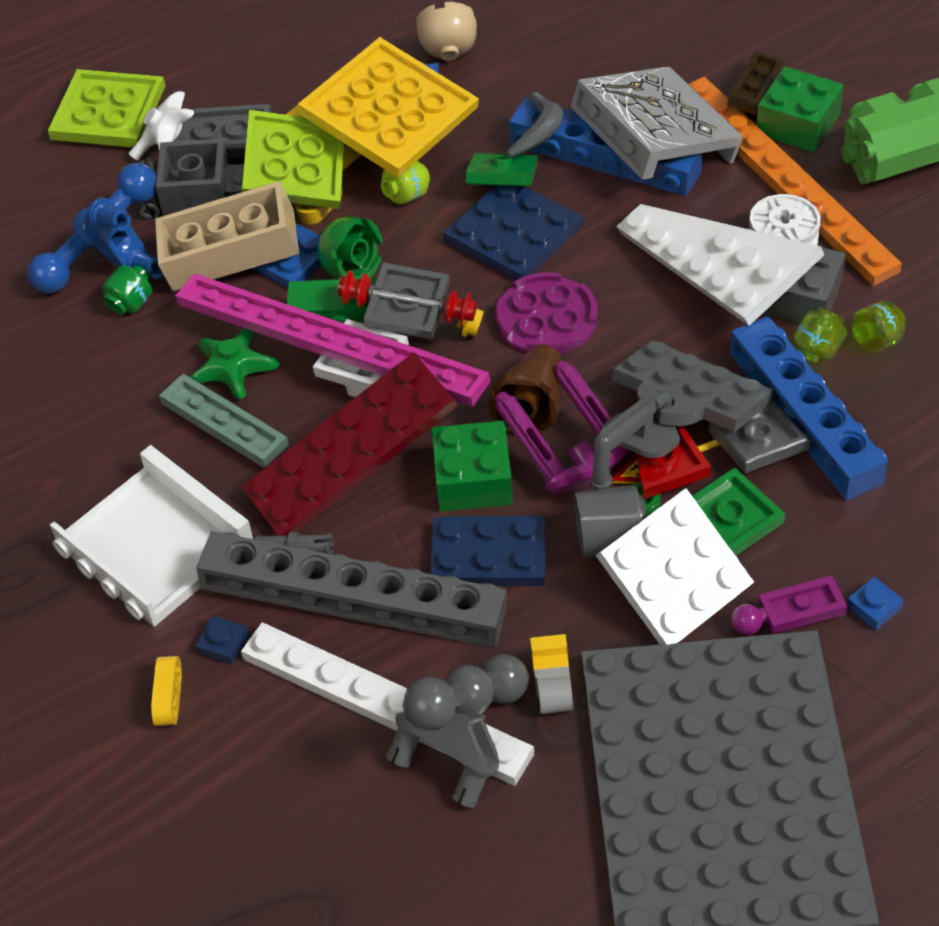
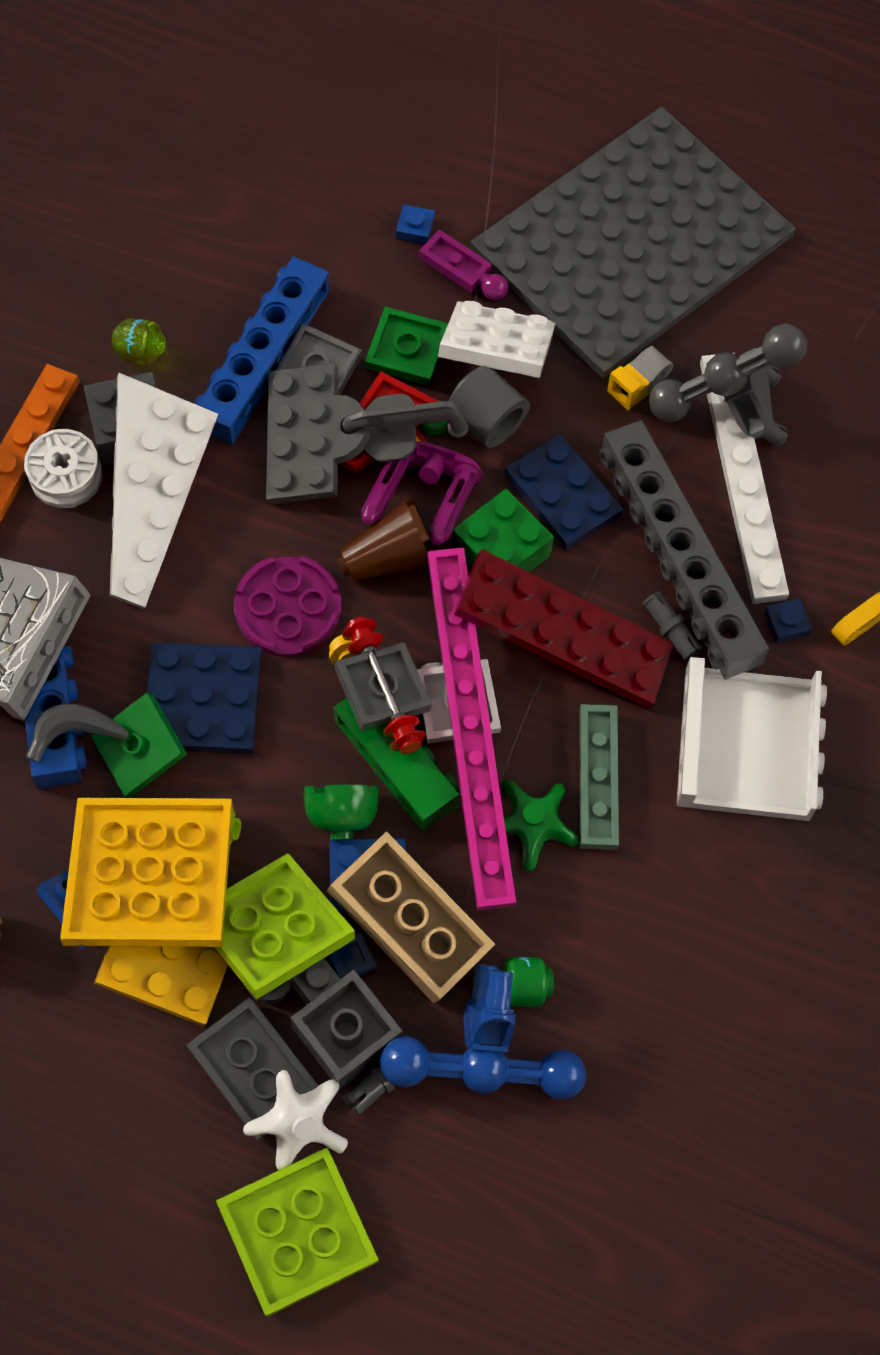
camera: 135 degrees left, 15 degrees up
(820, 334) = (181, 371): clear neon green head -> none

